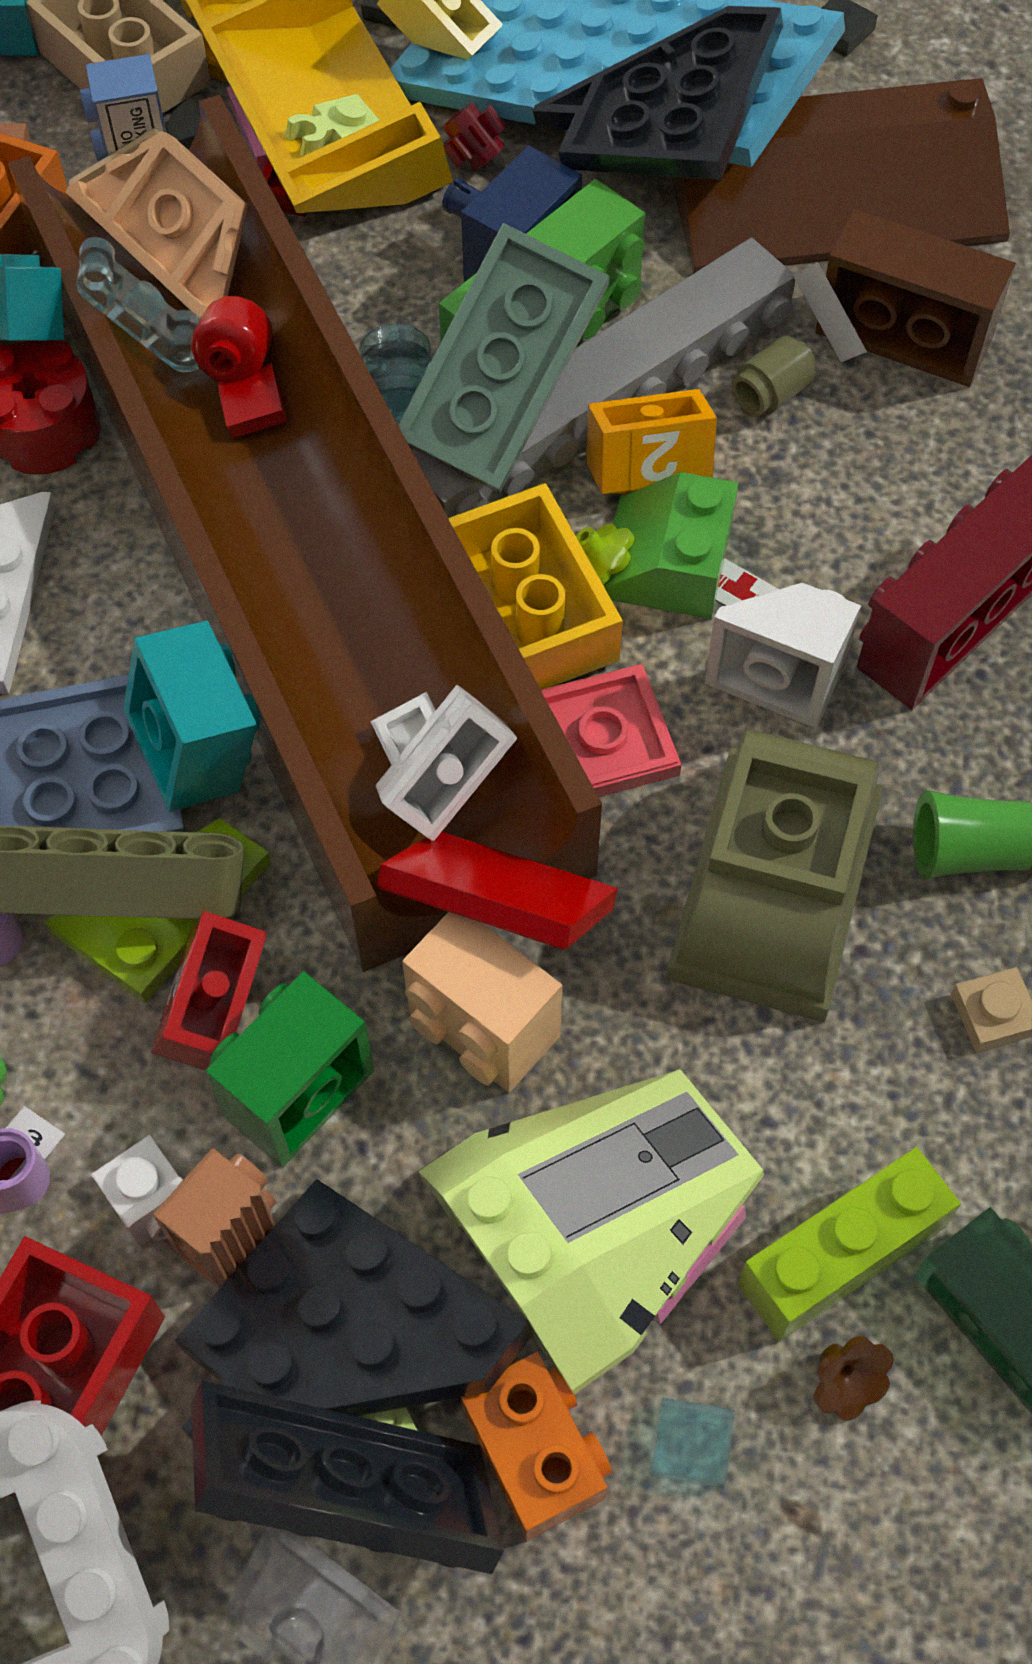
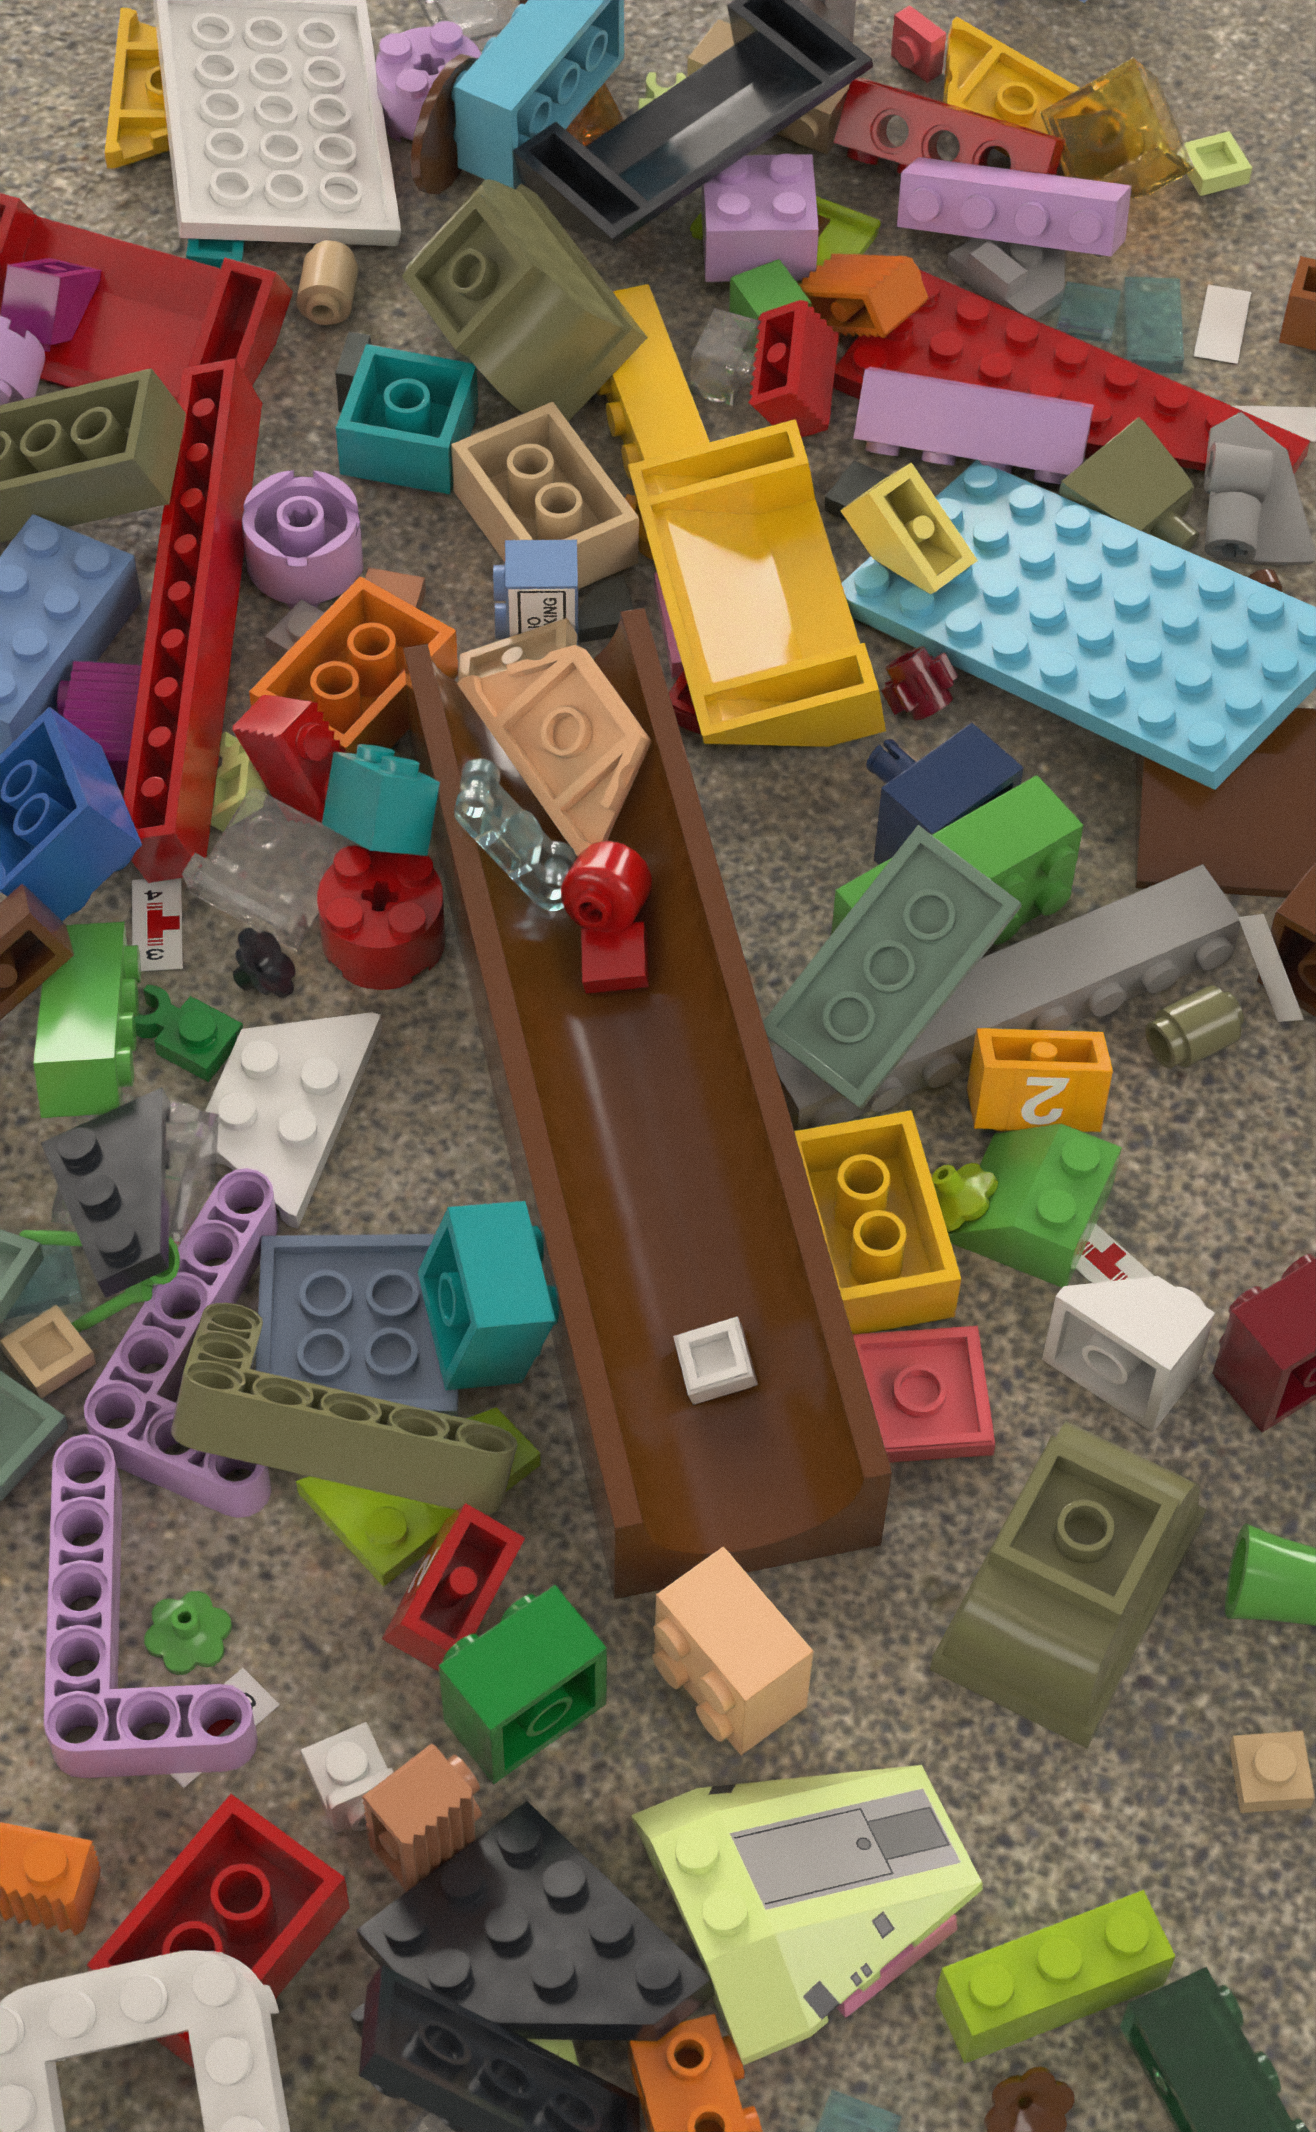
camera: 10 degrees right, 5 degrees down
(329, 122) = (764, 644): yellowish green plate -> none
(397, 362) = (777, 944): clear light blue wheel -> none
(445, 763) = (741, 1397): white brick -> none
(498, 889) = (769, 1539): red tile -> none
(670, 104) = (1138, 704): black wing -> none

